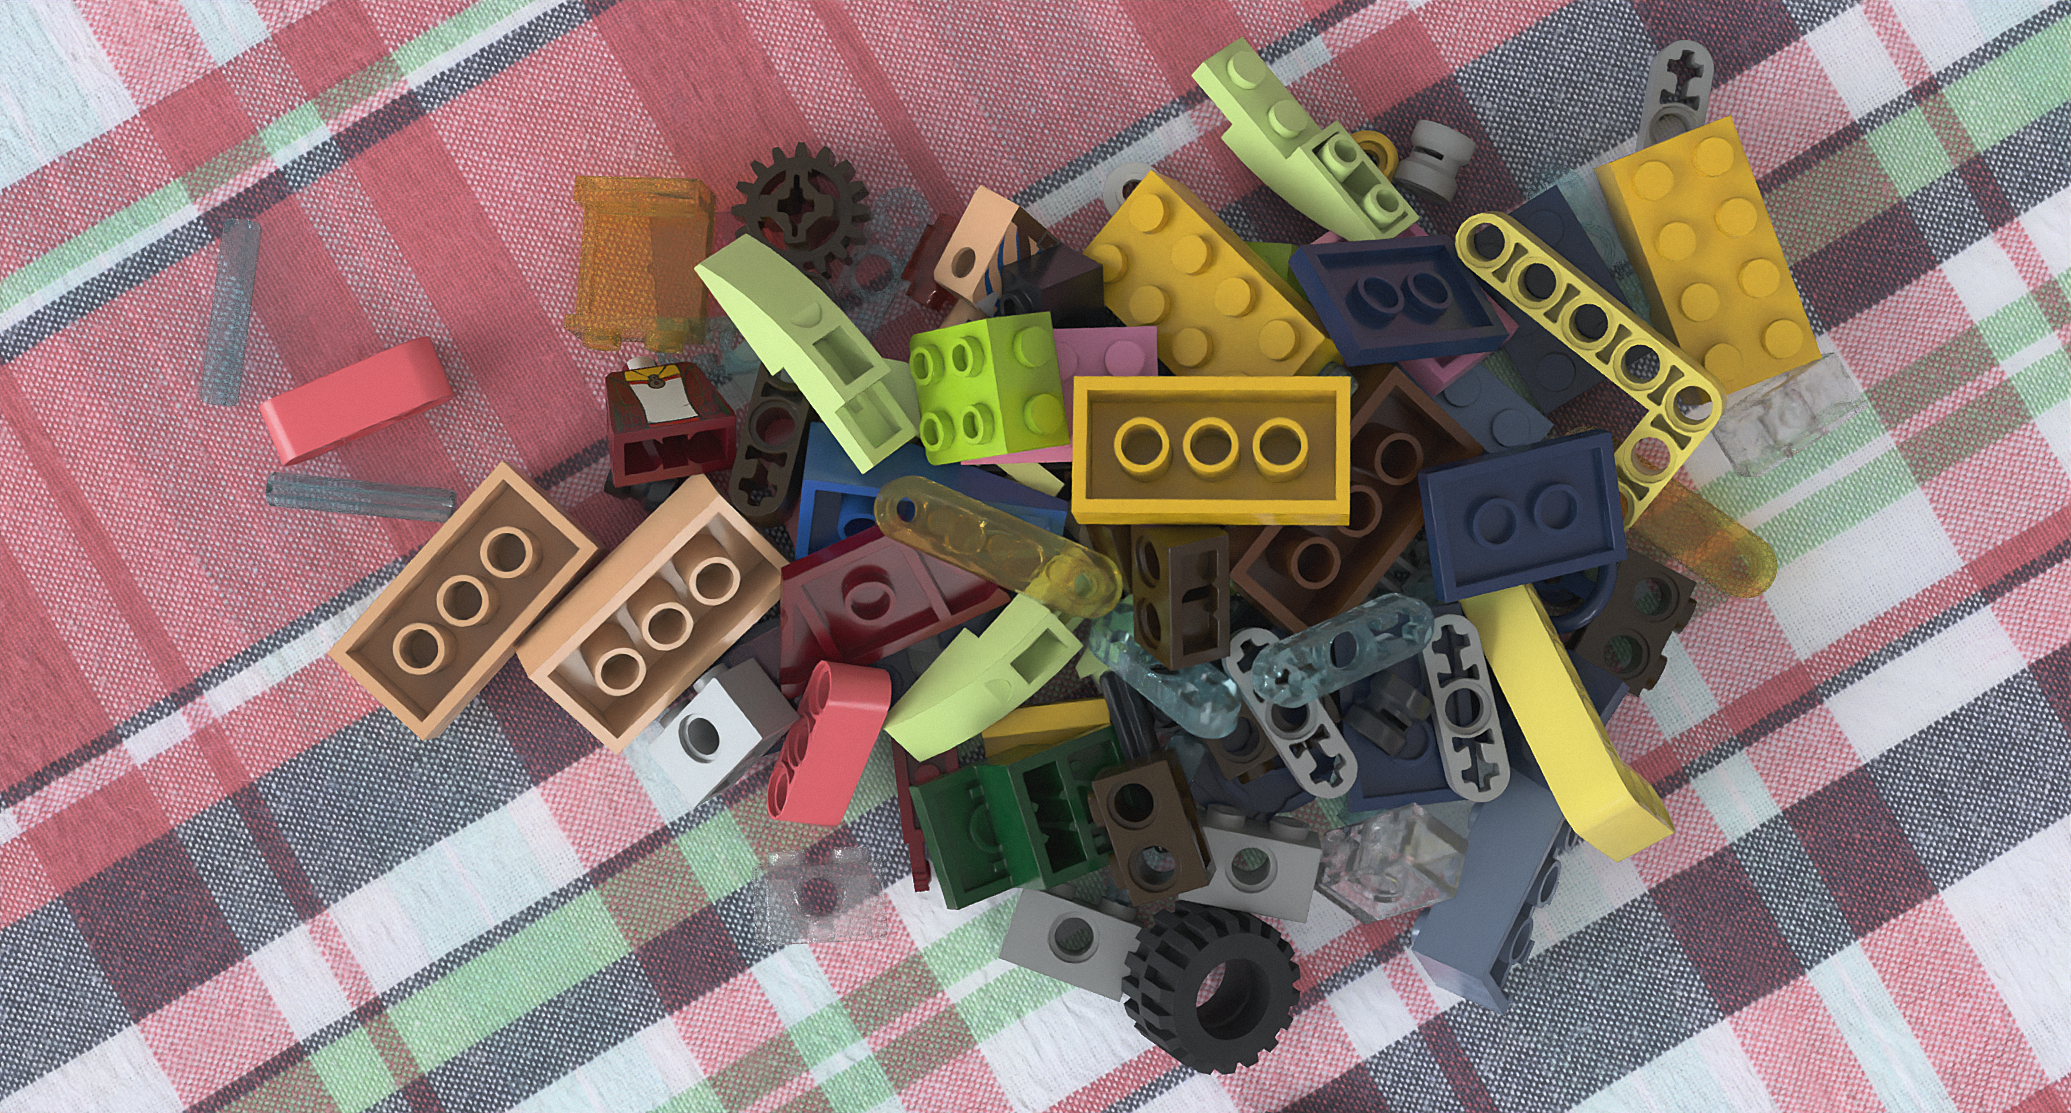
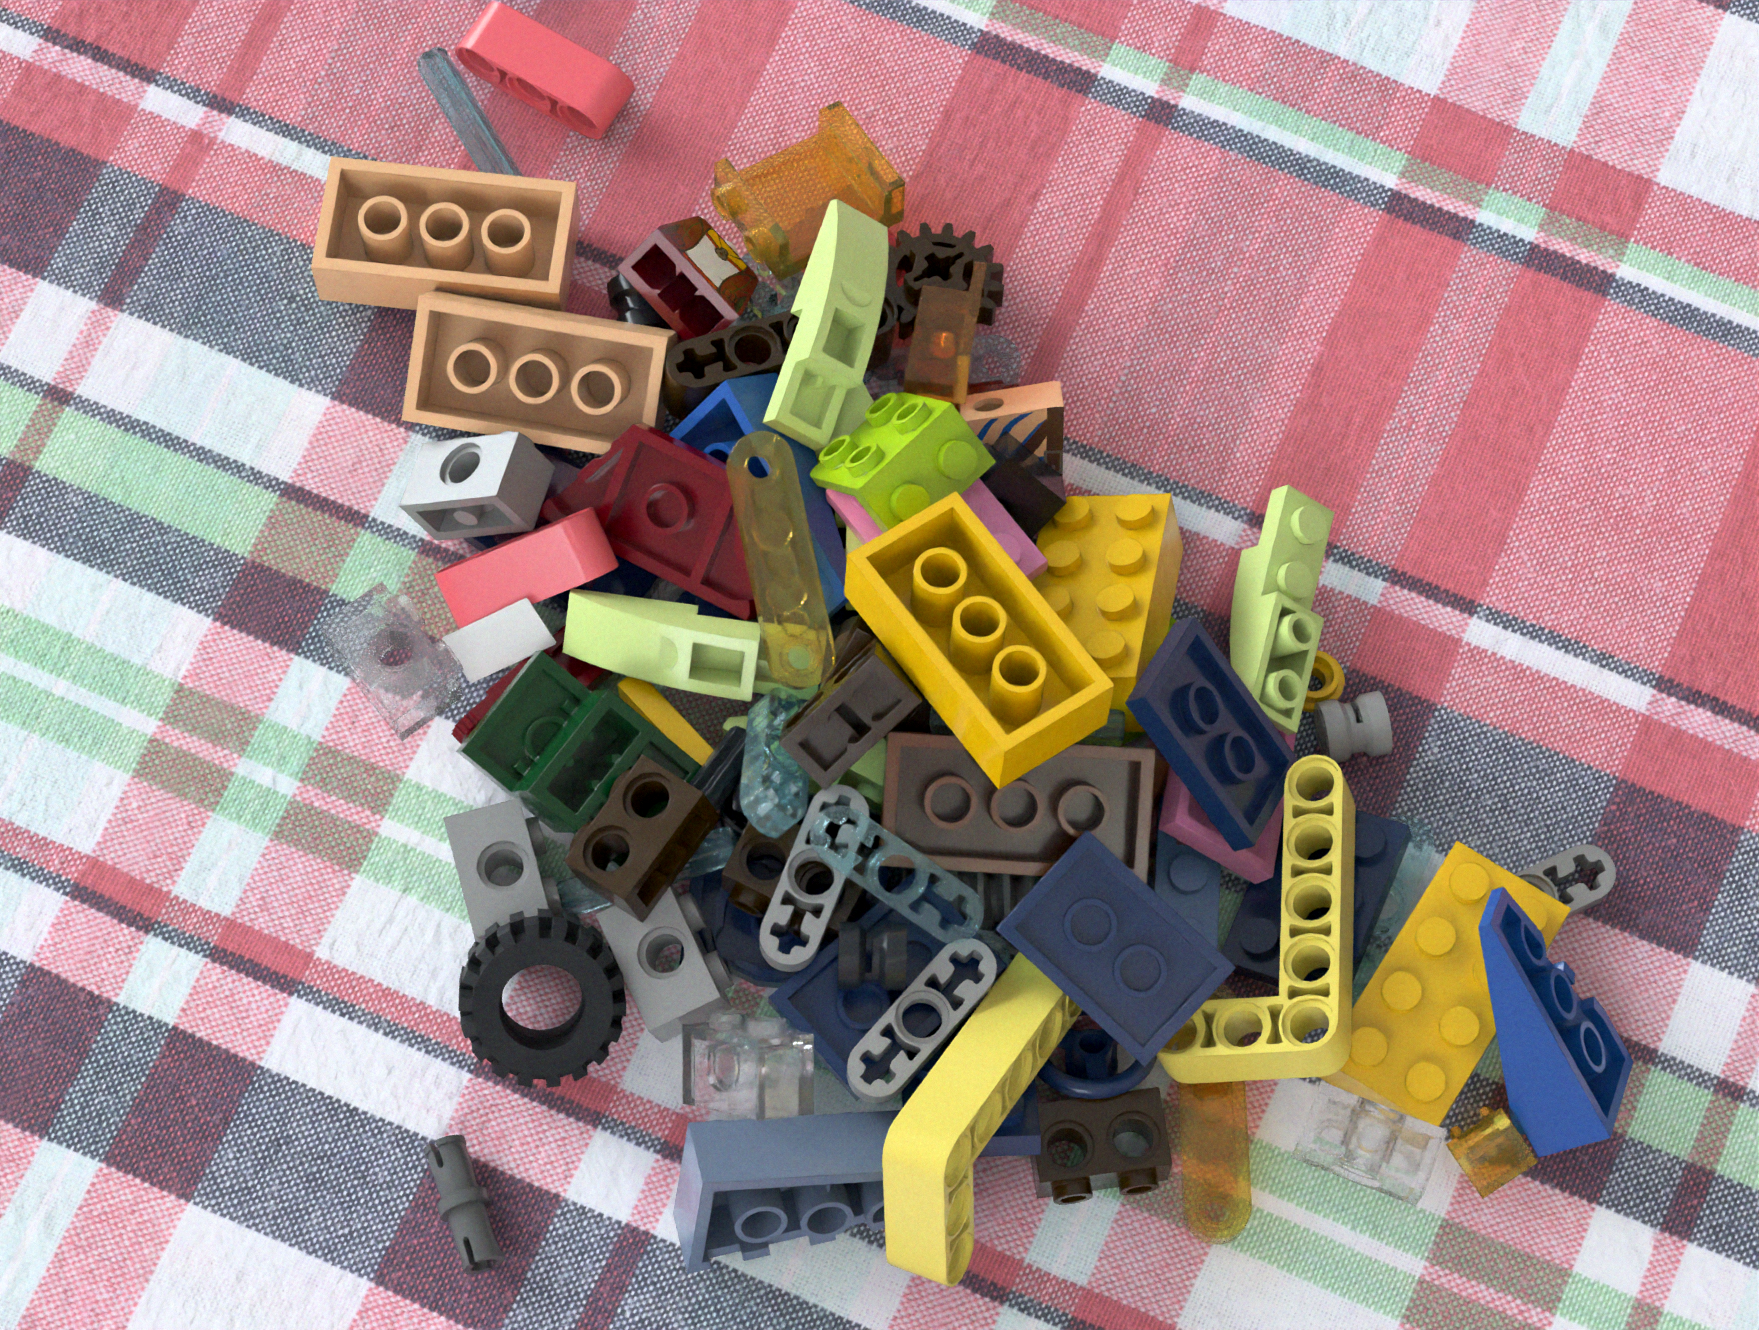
camera: 50 degrees right, 20 degrees down
(869, 804) = (499, 640): none -> white sticker
(876, 253) = (946, 340): none -> clear orange panel
(1825, 212) = (1556, 1051): none -> blue wedge
(1855, 321) = (1490, 1151): none -> clear yellow tile

